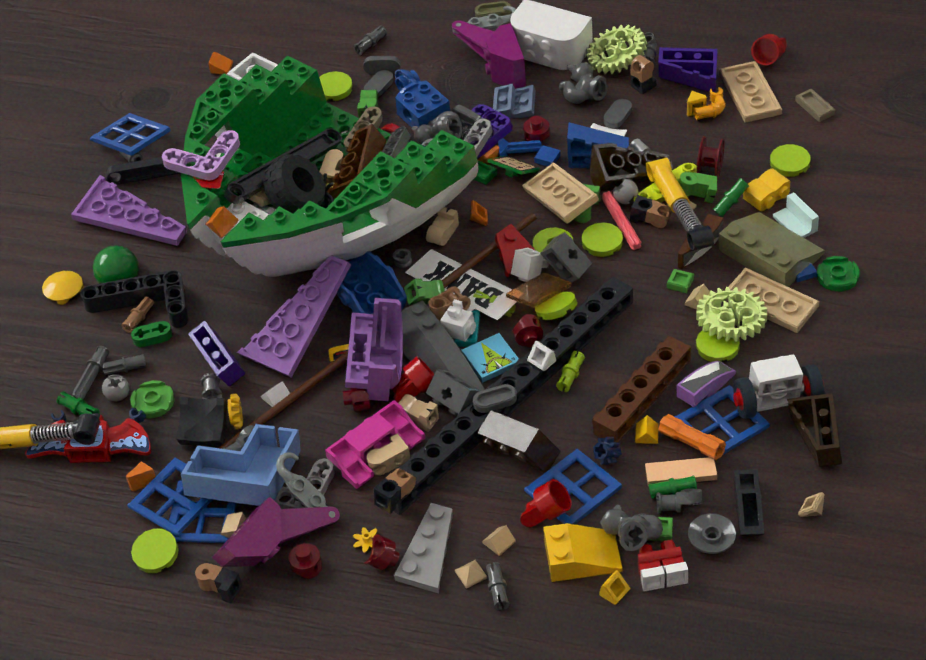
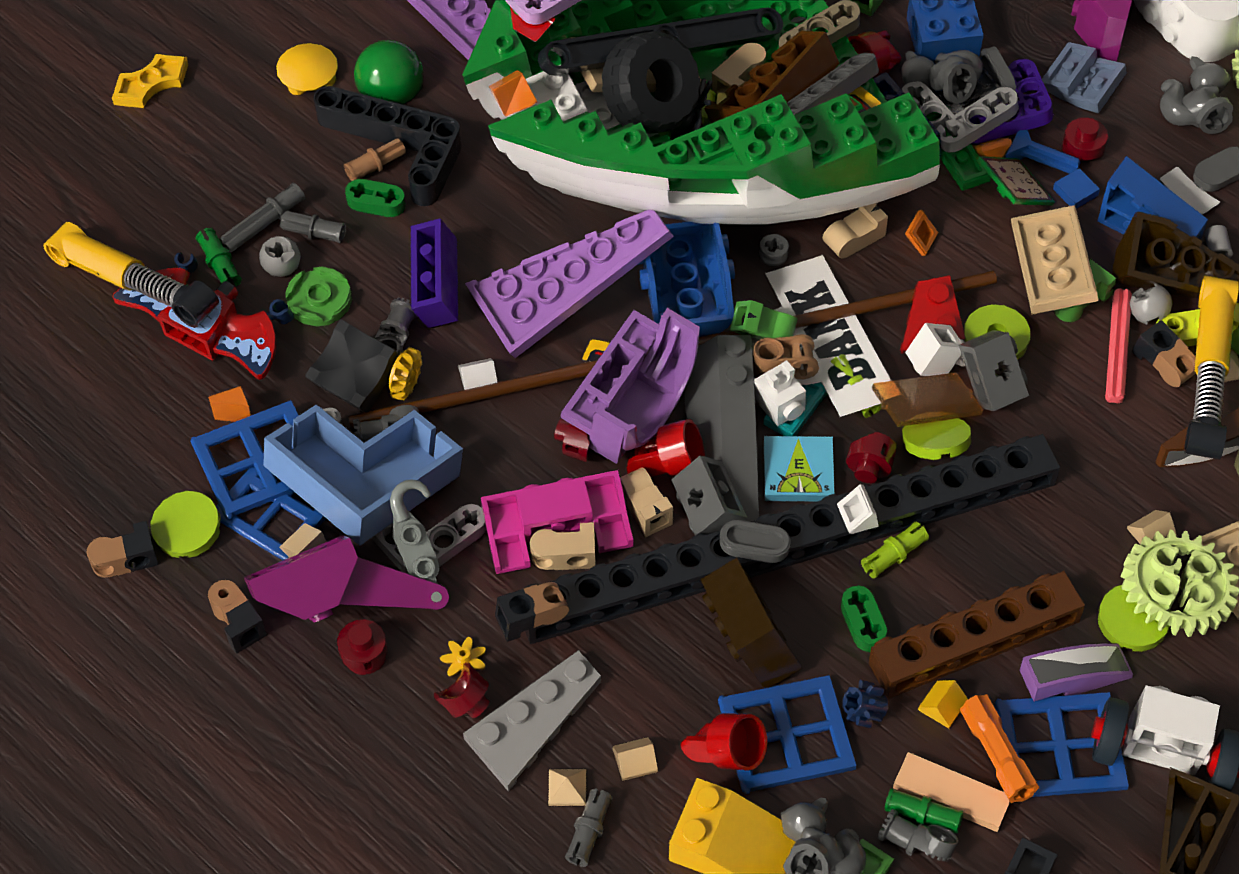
camera: 25 degrees right, 10 degrees up
(127, 582) = (123, 553): none -> leg
(576, 412) = (856, 621): none -> green beam
(602, 239) = (1072, 362): lime tile -> none
(680, 280) = (1144, 486): bright green tile -> none

